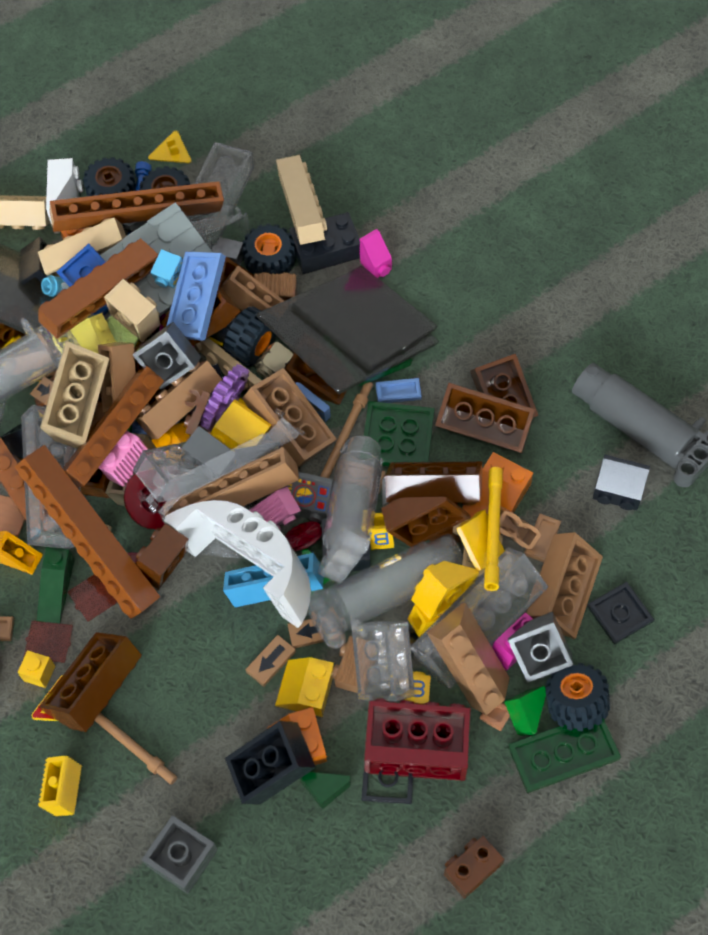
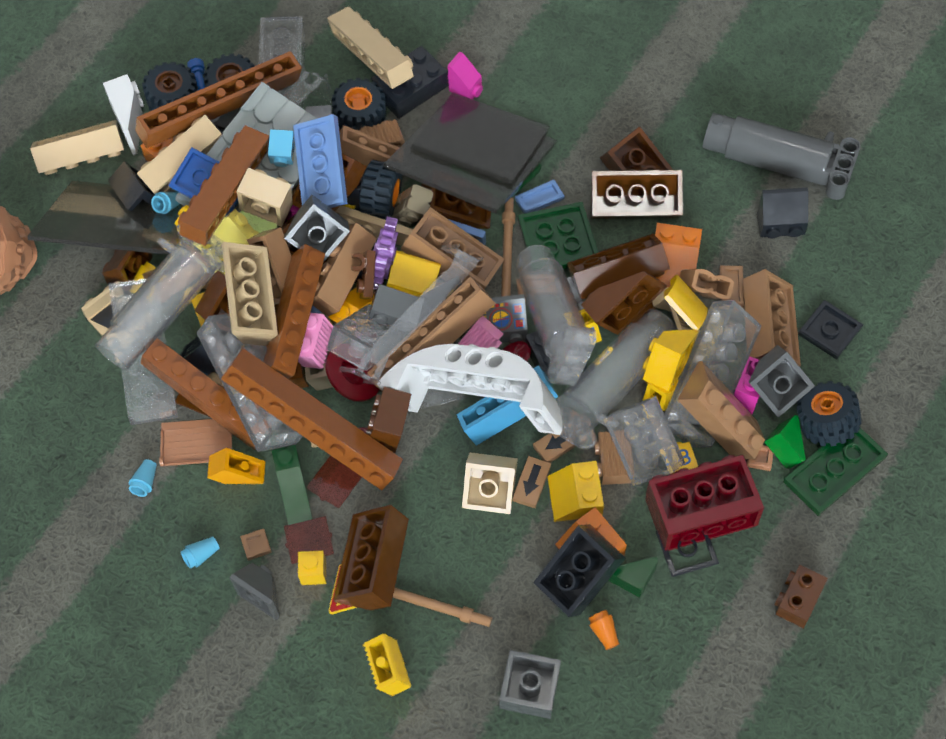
camera: 20 degrees left, 0 degrees up
(42, 390) = (212, 301): medium nougat tile -> none
(171, 150) = (214, 40): yellow piece -> none
(230, 647) = (489, 483): none -> tan slope
(274, 827) = (604, 628): none -> orange cone
(491, 576) = (710, 323): yellow piece -> none

